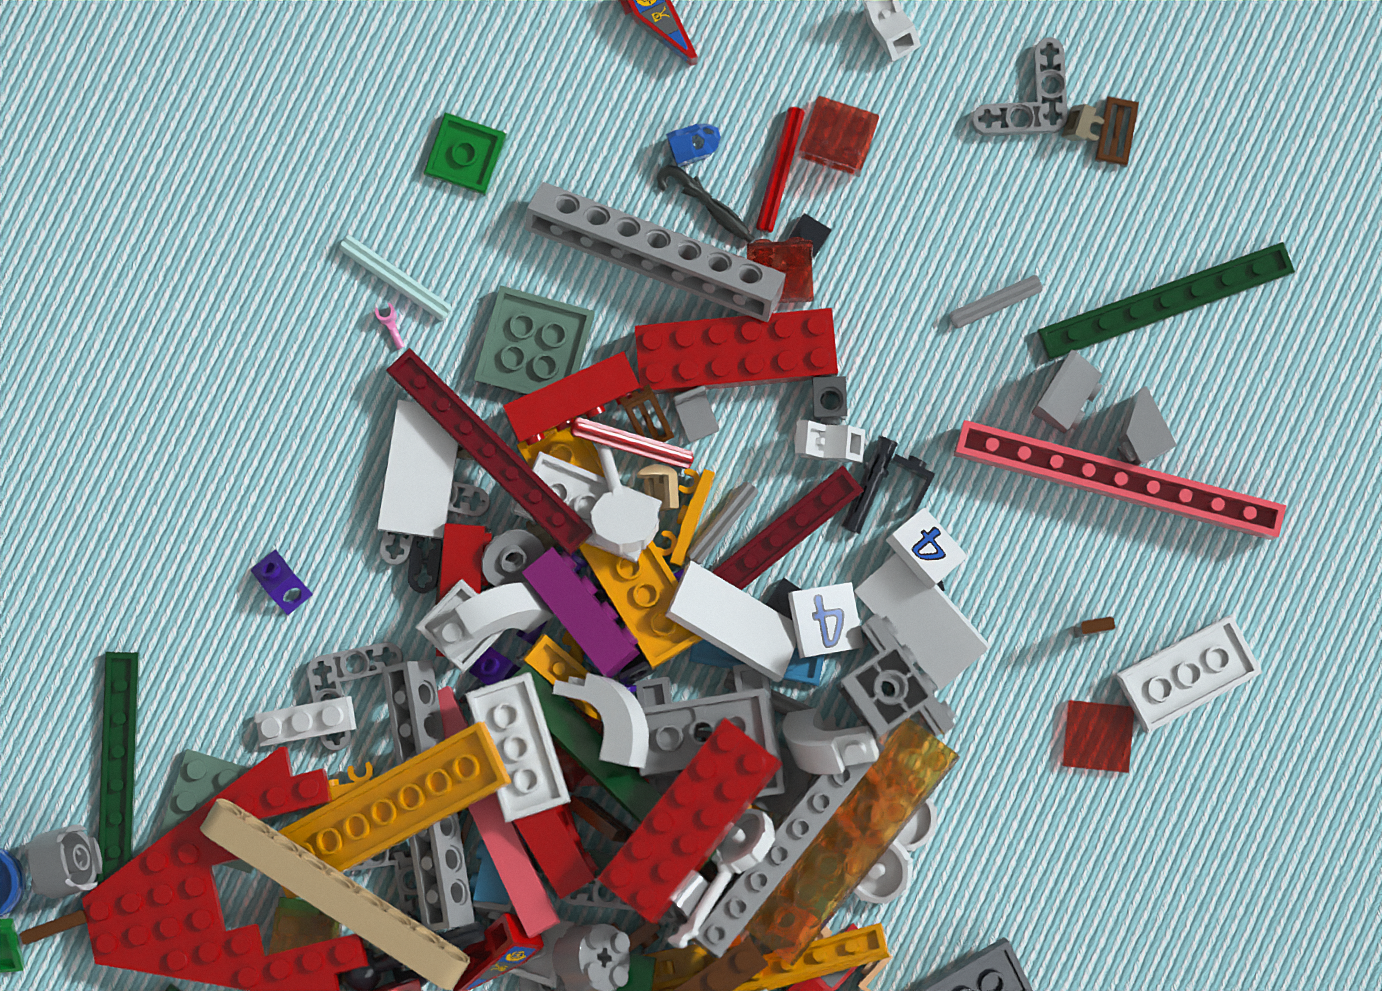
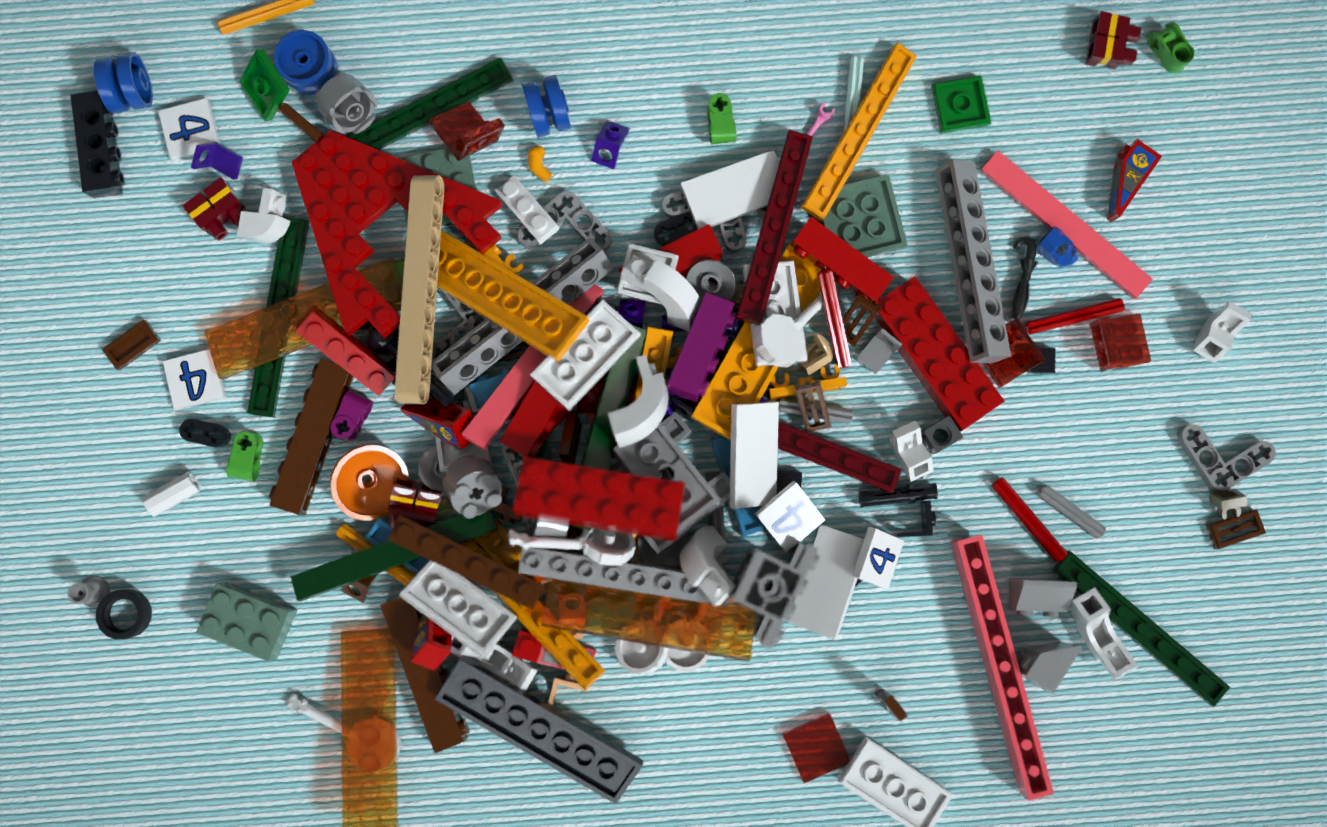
camera: 60 degrees right, 0 degrees up
(172, 740) = (466, 131): none -> clear red bracket
(199, 631) = (546, 106): none -> blue wheel
(255, 681) = (535, 163): none -> light orange arm
(333, 443) = (721, 123): none -> bright green piece
(432, 290) = (858, 132): none -> light orange tile
(680, 112) = (1054, 213): none -> coral tile
(694, 518) = (808, 387): none -> reddish brown tile
(978, 353) = (1029, 519): none -> red axle
(1145, 351) = (1093, 623): none -> white arch

